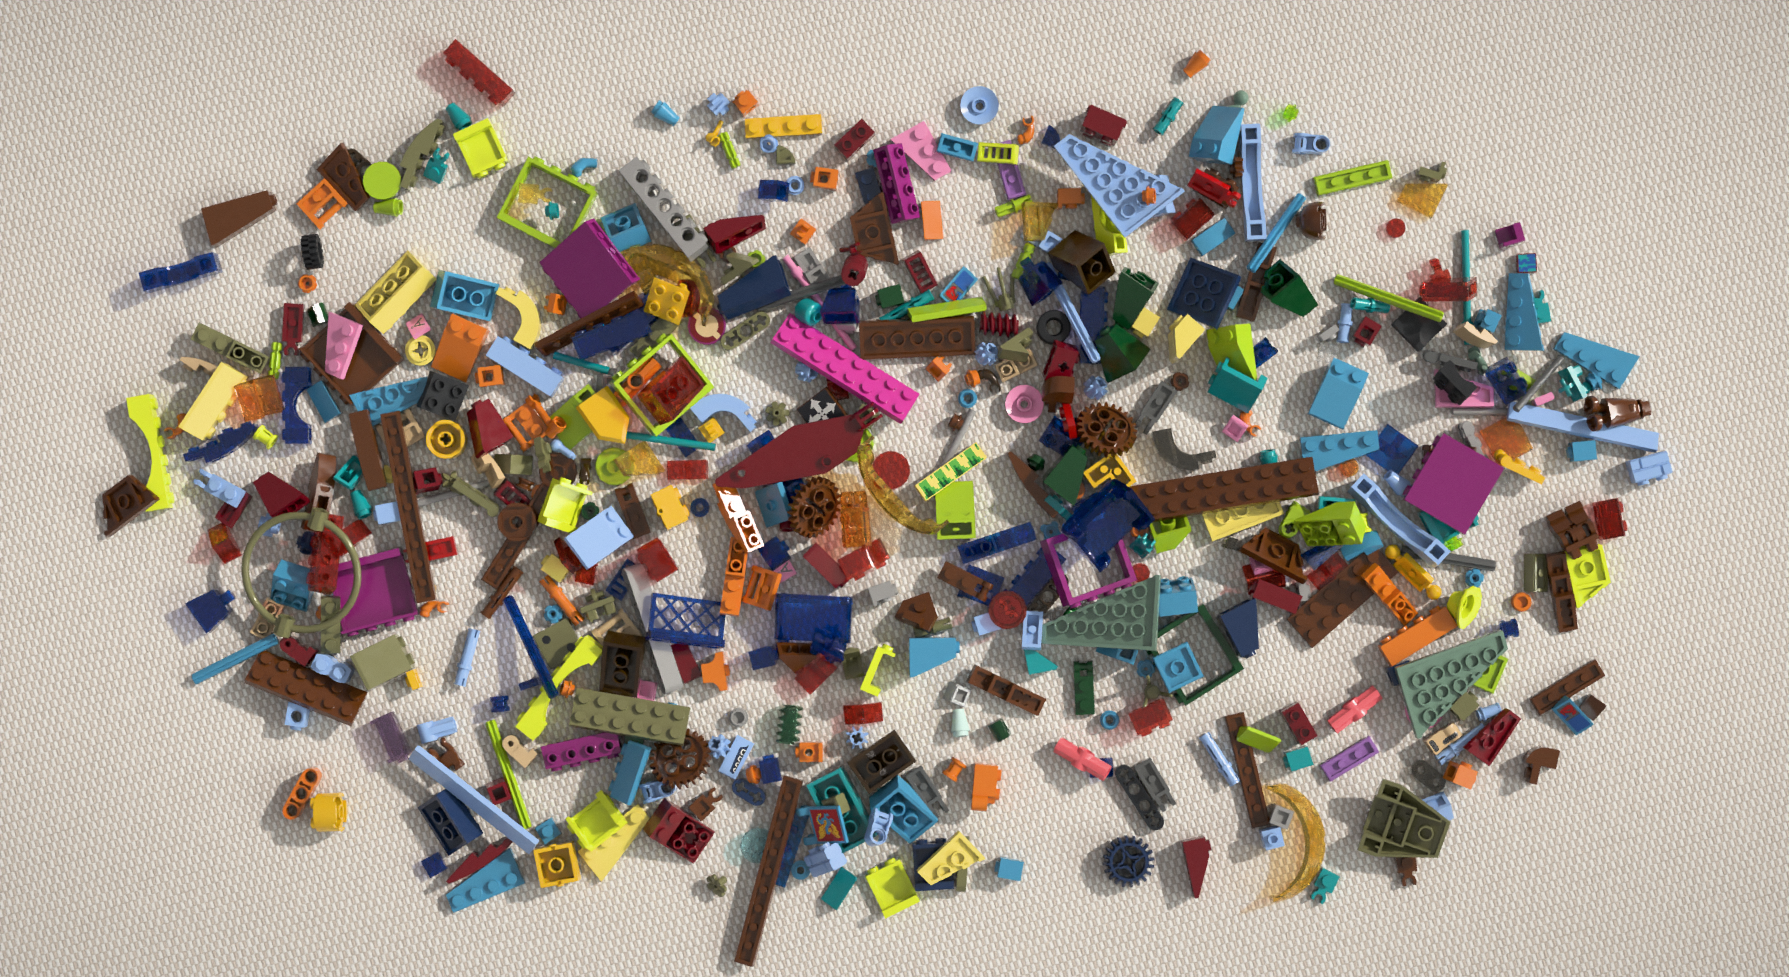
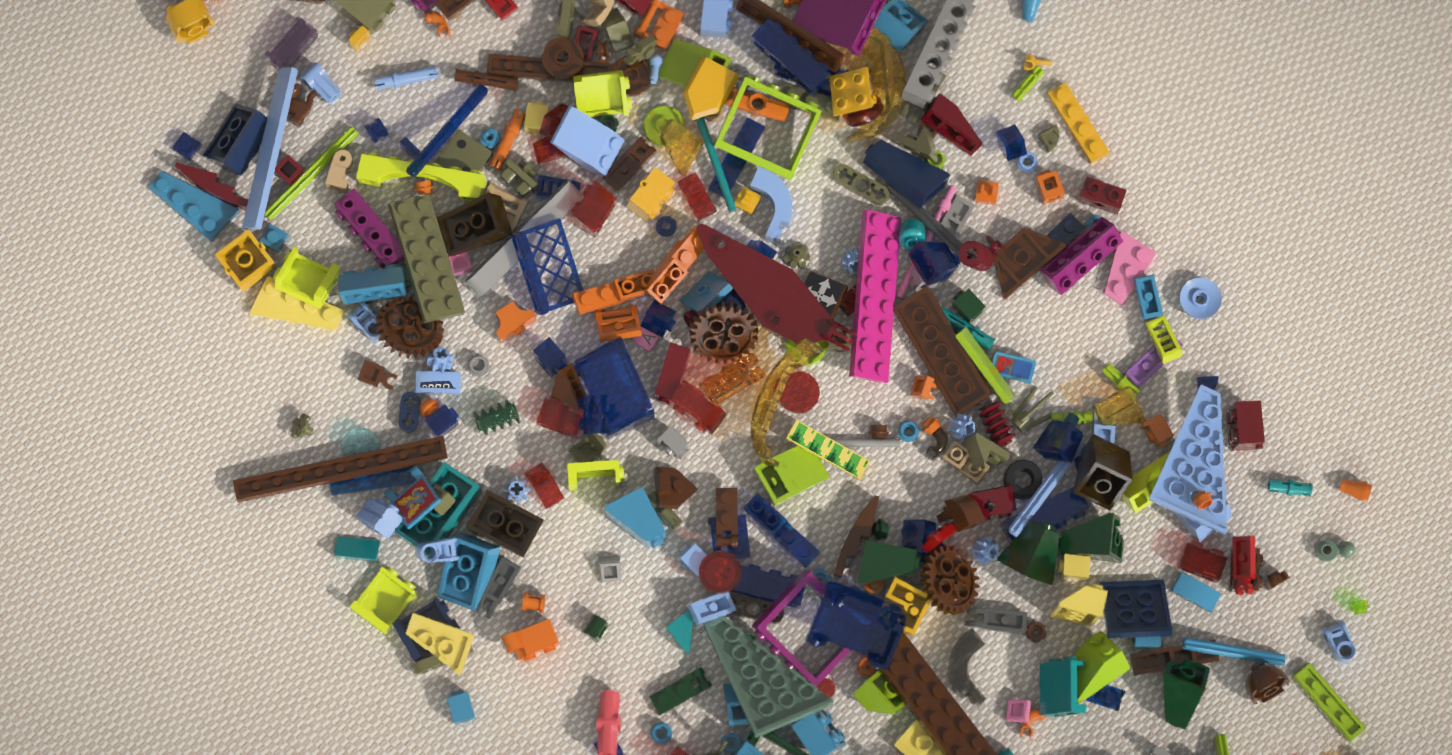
camera: 55 degrees right, 10 degrees down
(554, 425) = (675, 48): orange brick -> none
(585, 364) = (747, 45): teal bar -> none
(585, 466) = (643, 98): dark brown arm -> none
(671, 391) = (766, 137): clear red slope -> none
(678, 830) = (336, 363): dark red slope -> none
(685, 662) = (506, 287): dark red slope -> none
(712, 332) = (845, 153): tile -> none
(718, 104) = (1066, 50): light blue gear -> none
(745, 102) = (1081, 75): orange brick -> none
(768, 148) = (1048, 116): light blue plate -> none
(800, 863) = (356, 494): dark azure plate -> none
(816, 747) = (479, 459): orange brick -> none
(917, 254) = (1018, 309): dark red slope -> none
(931, 220) = (1064, 309): orange slope -> none
(959, 723) = (581, 585): light aqua cone -> none
(1006, 690) = (638, 614): reddish brown slope -> none
(1028, 134) = (1196, 360): orange arm -> none
(1031, 396) = (939, 480): bright pink dish -> none
(1056, 503) = (849, 569): teal plate -> none
(1142, 545) = (852, 676): teal plate -> none
(1217, 135) = (1296, 543): dark azure slope -> none
(1251, 182) = (1270, 602): light blue arch -> none

